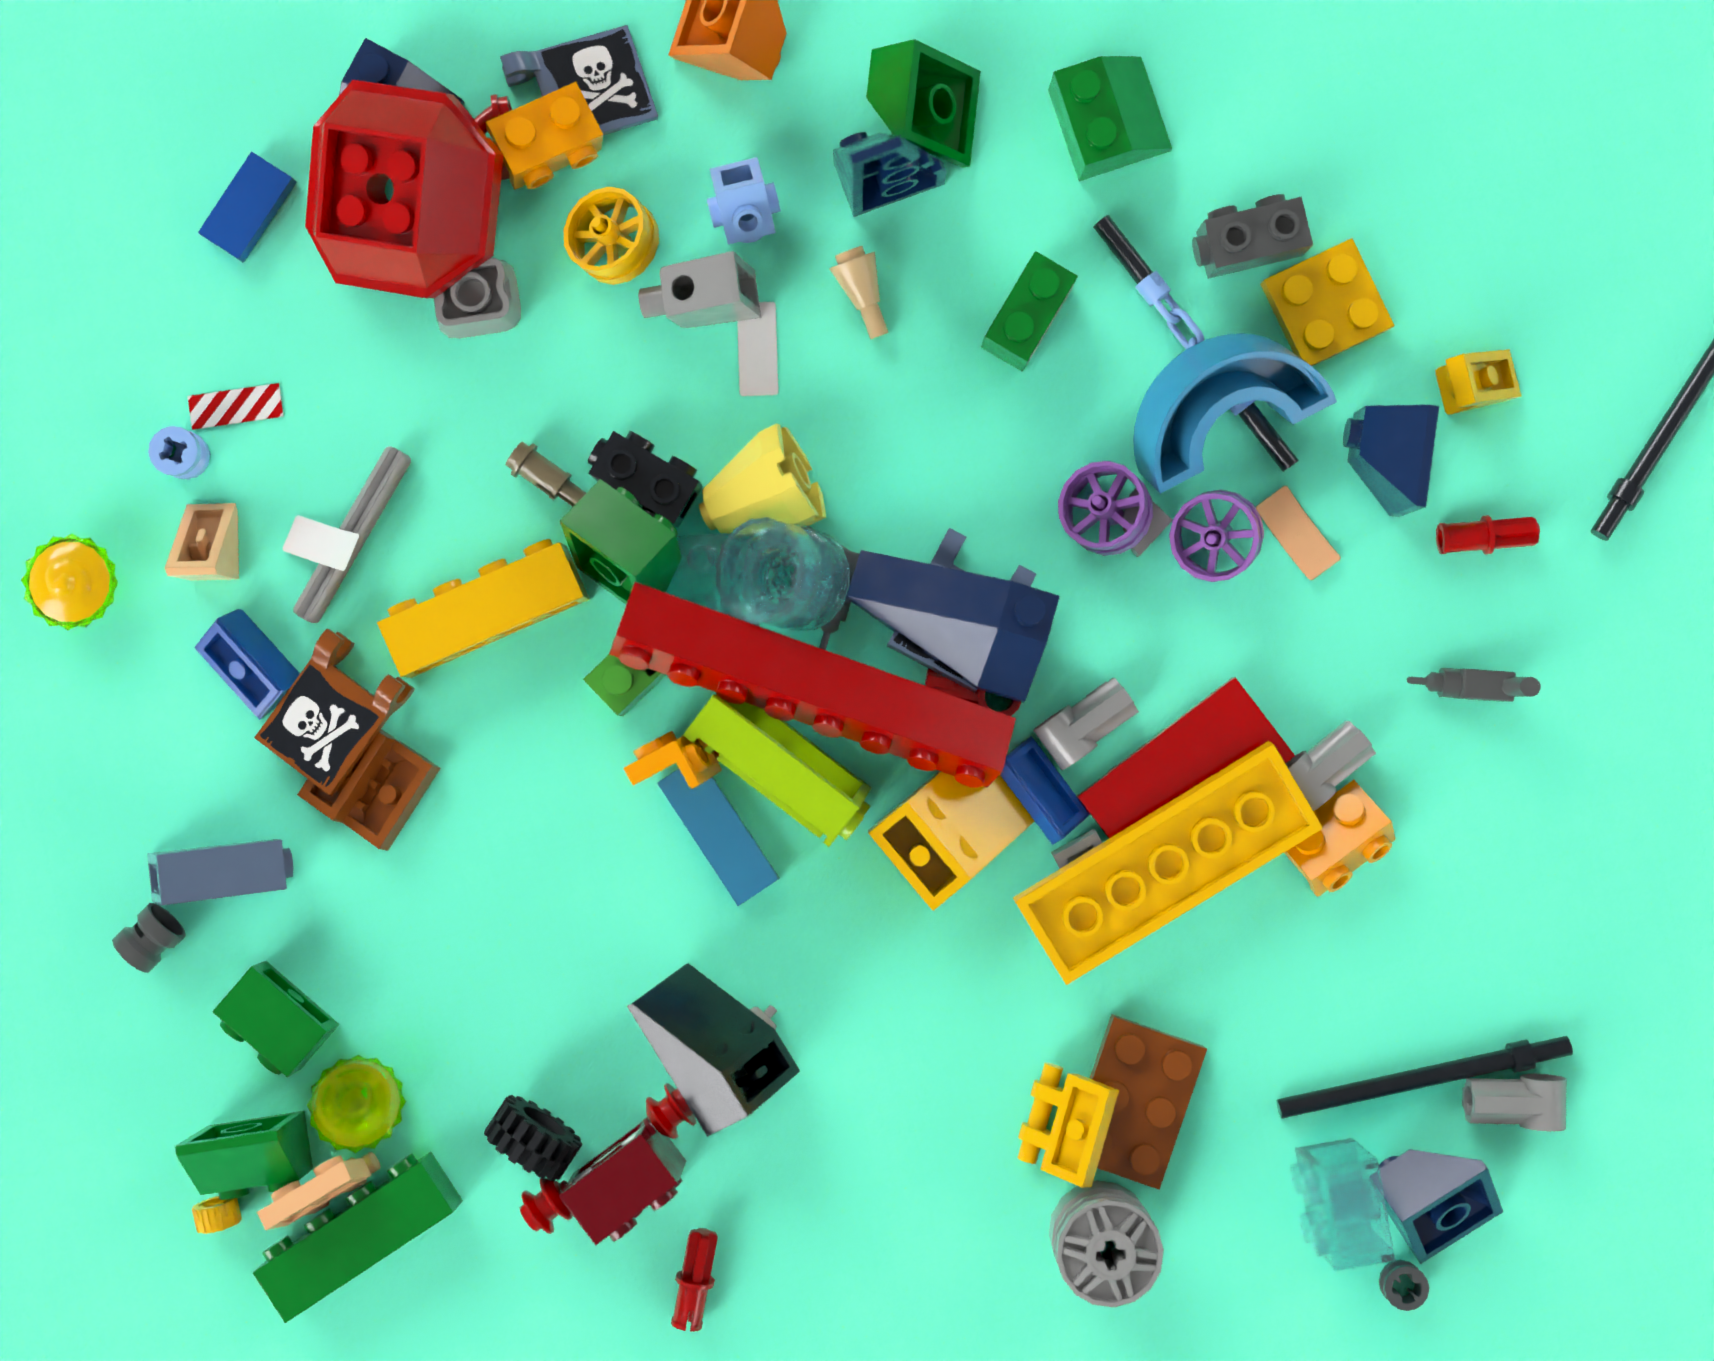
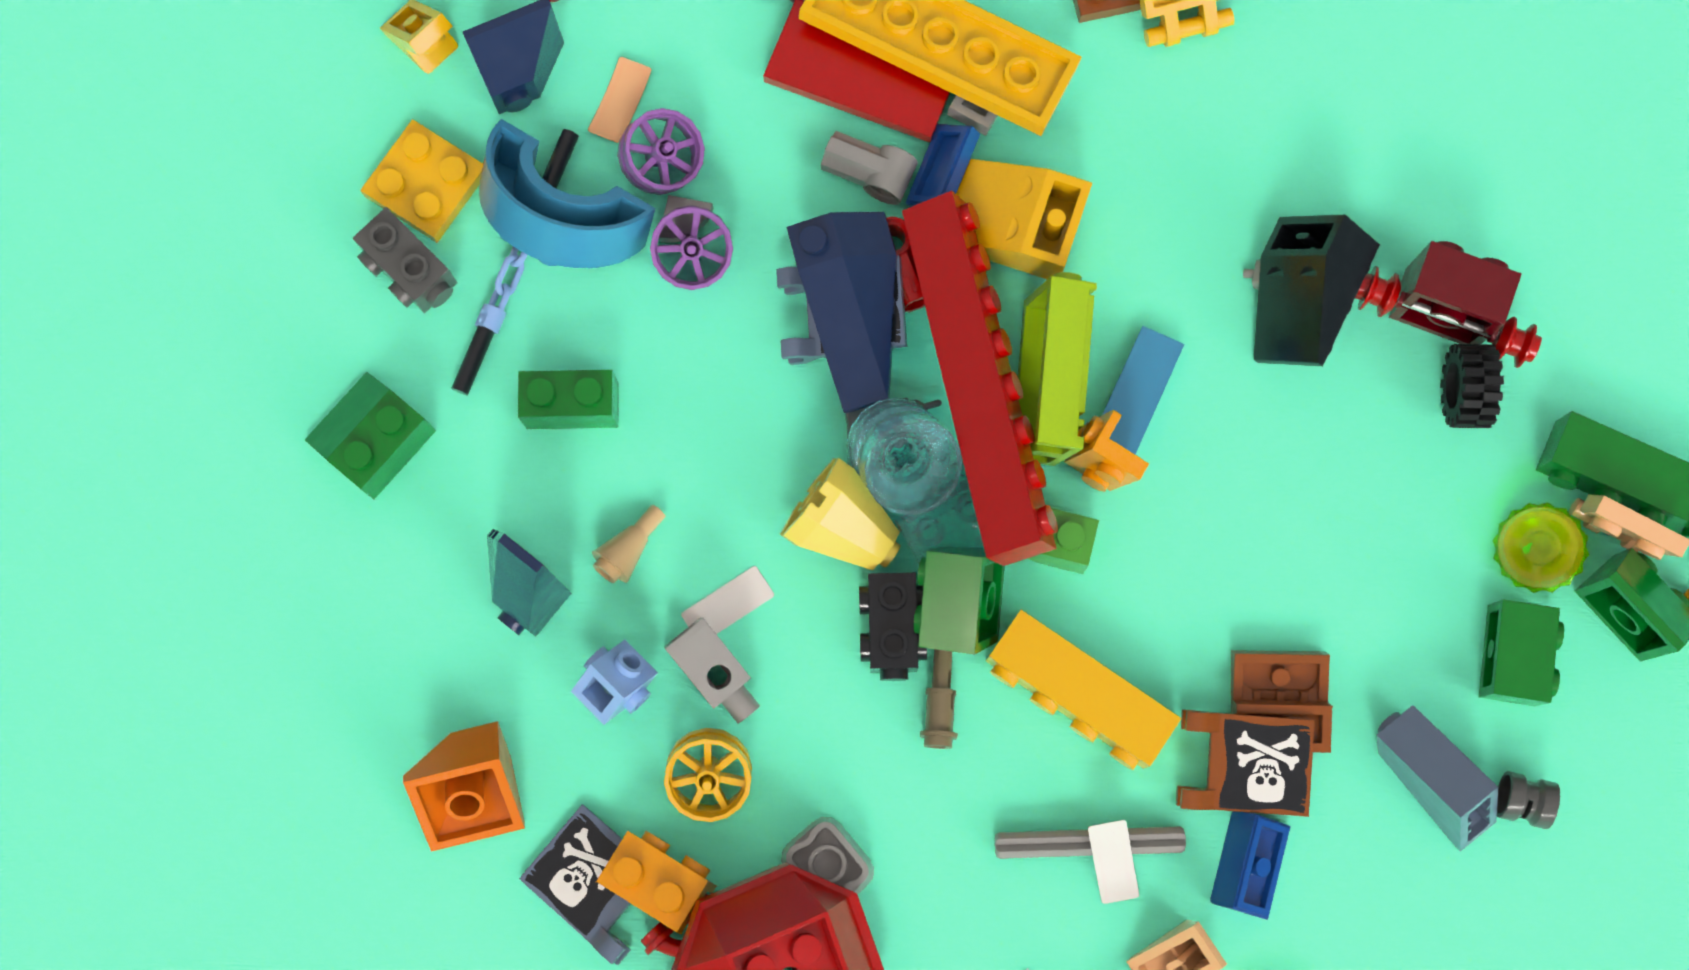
camera: 125 degrees left, 10 degrees down
(695, 1279) = (1491, 203): red axle -> none
(925, 98) = (442, 587): green slope -> none

